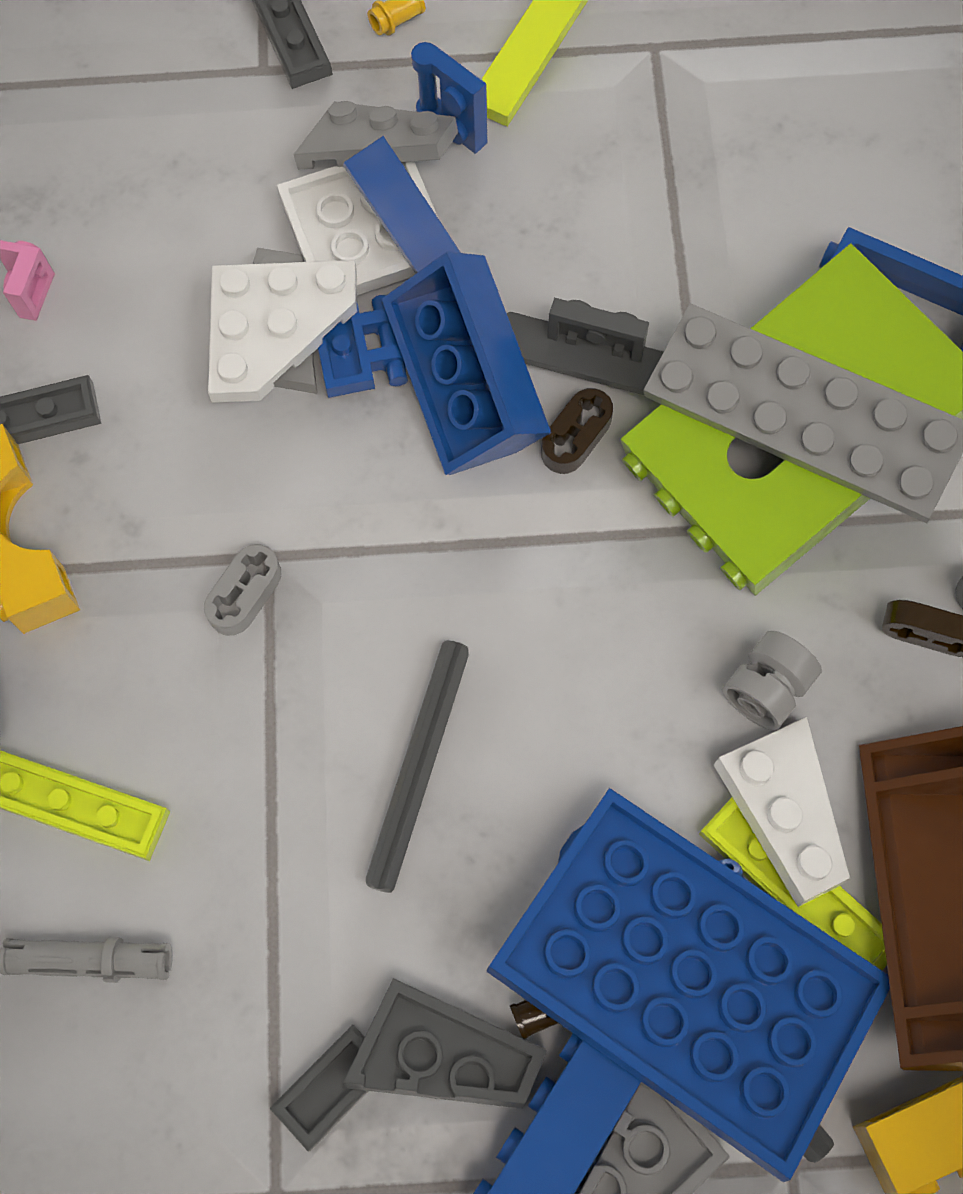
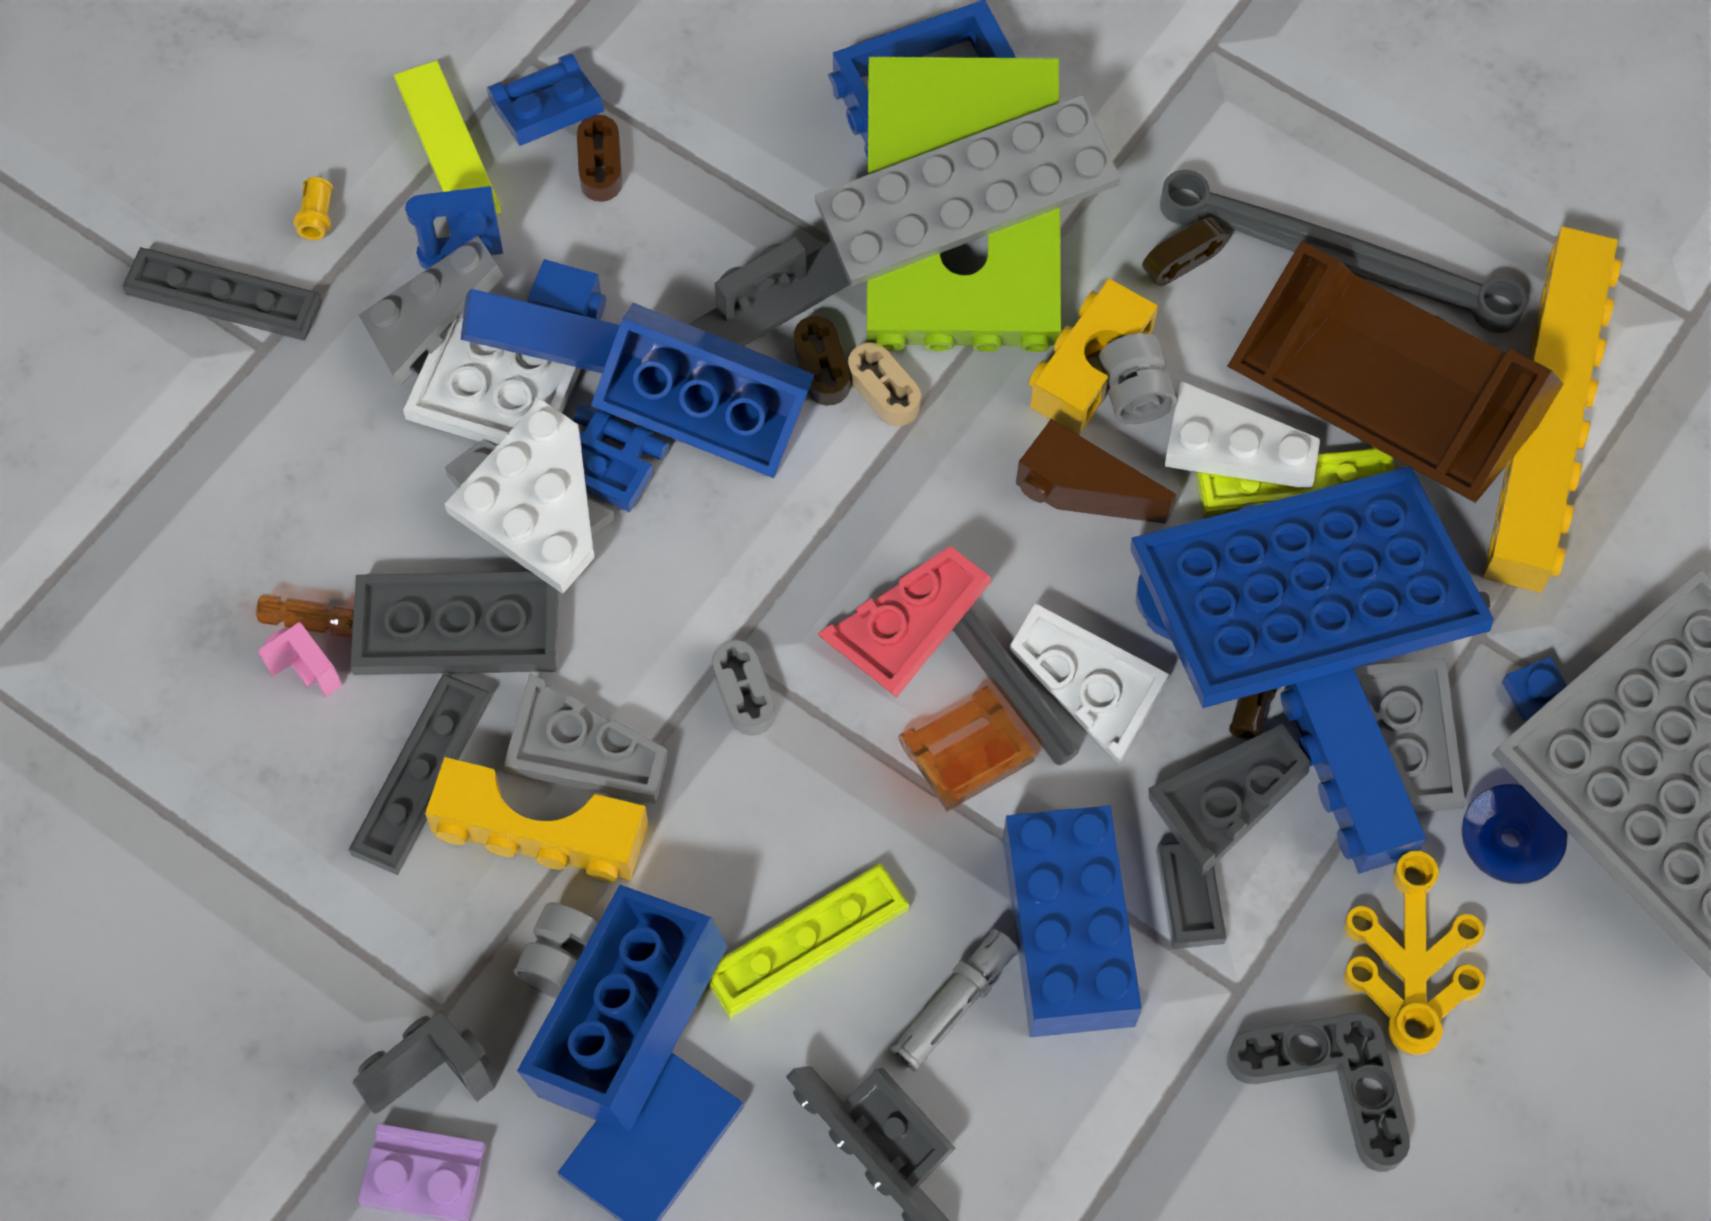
camera: 55 degrees left, 5 degrees down
(67, 254) = (311, 614): none -> clear orange axle
(99, 512) = (578, 748): none -> light grey wing
(133, 351) = (454, 623): none -> dark grey plate
(215, 1006) = (1071, 921): none -> blue brick
(313, 814) = (975, 760): none -> clear orange plate
(389, 668) = (909, 622): none -> coral wing
(464, 852) = (1090, 678): none -> white wing
(466, 214) = (568, 290): none -> blue brick
(587, 488) = (891, 377): none -> tan beam
(615, 155) = (608, 157): none -> reddish brown beam
(622, 79) = (550, 108): none -> blue plate
(641, 706) = (1086, 479): none -> reddish brown slope
(716, 624) = (1068, 385): none -> yellow arch

